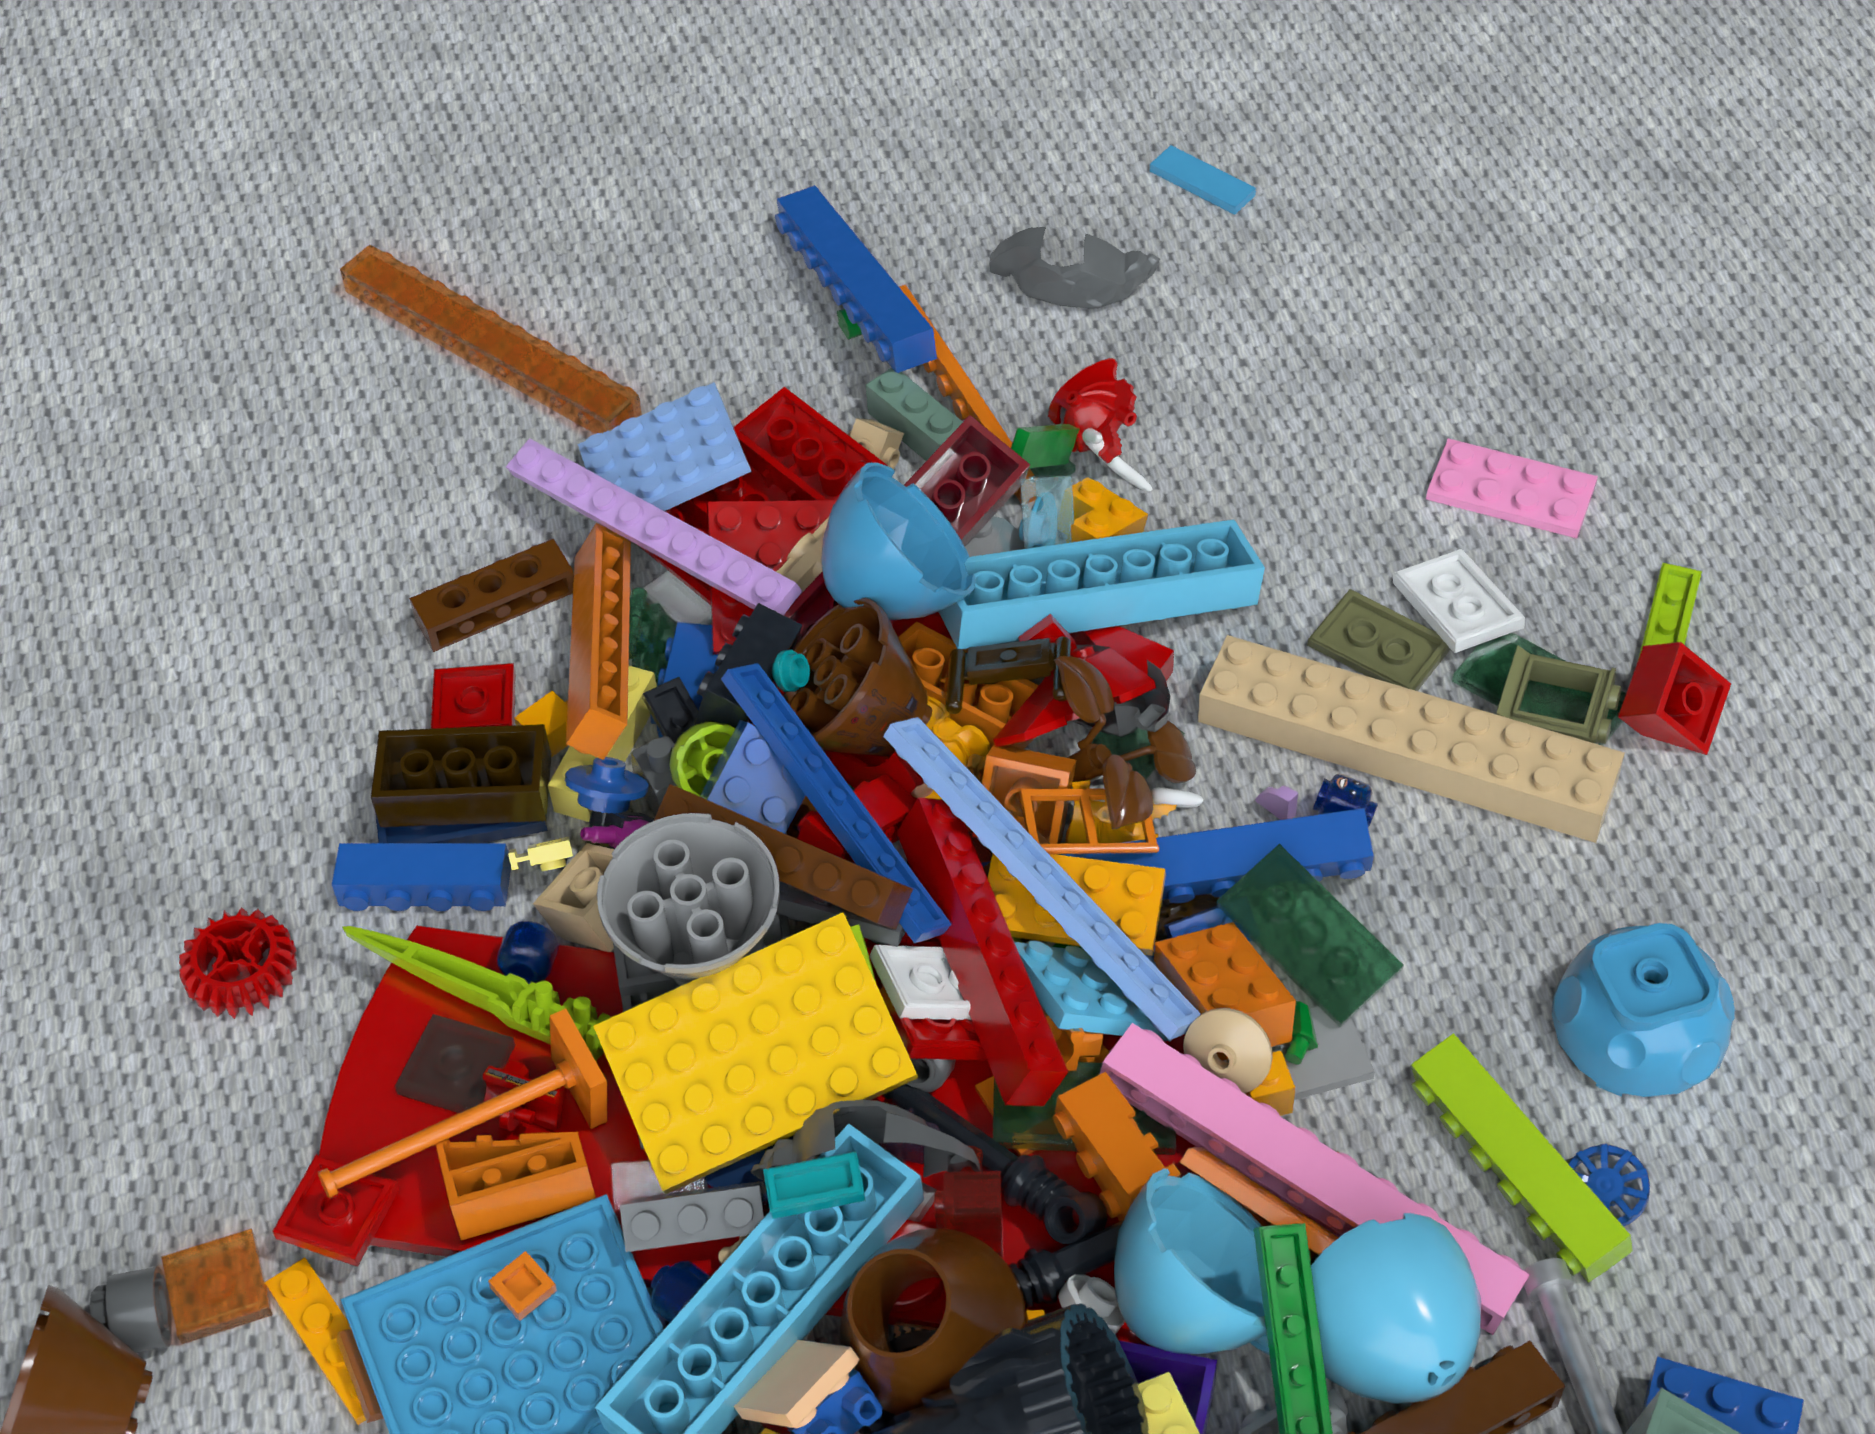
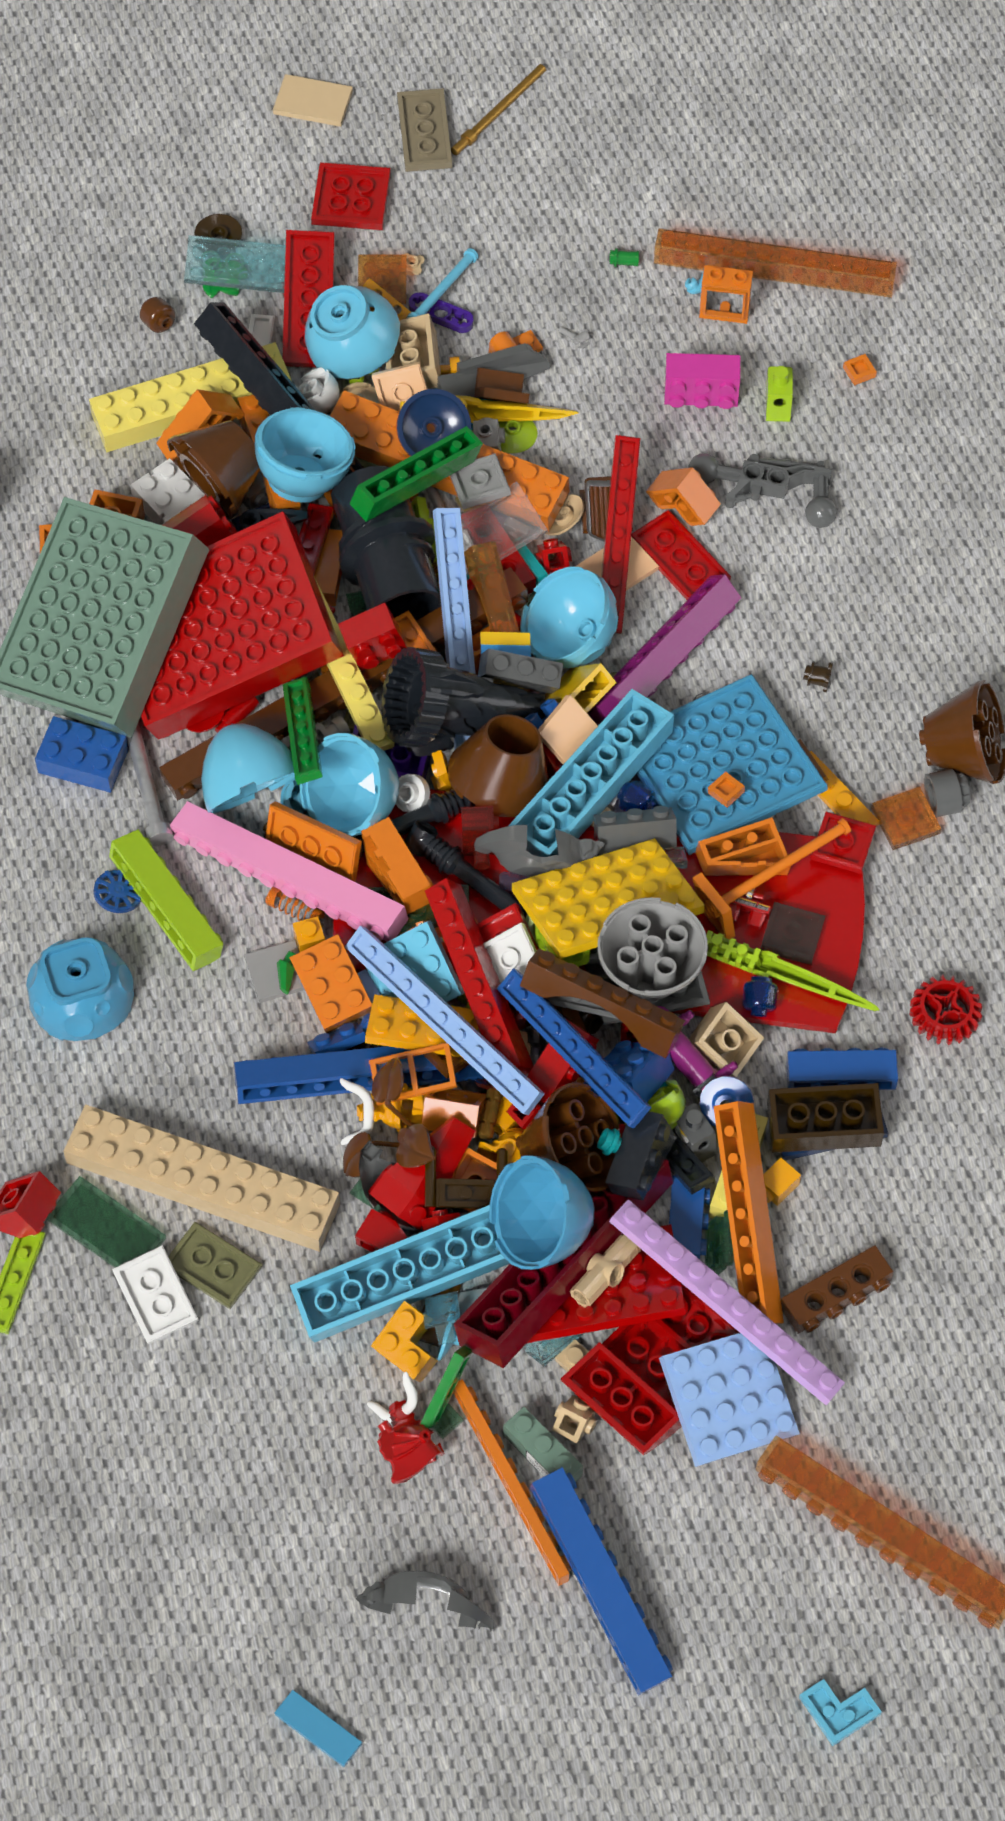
camera: 175 degrees right, 10 degrees up
(474, 696) = (834, 1206): red plate -> none
(547, 854) = (763, 1072): light yellow plate -> none
(584, 182) = (836, 1718): none -> medium azure plate
(814, 1185) = (566, 817): teal tile -> none
(1238, 1038) = (331, 923): tan dish -> none
(1279, 802) = (285, 1132): lavender tile -> none
(1309, 935) = (277, 1020): clear green tile -> none
(1345, 794) = (247, 1129): clear blue head -> none
(1512, 488) = (104, 1401): bright pink plate -> none
(1567, 675) = (92, 1217): olive window -> none

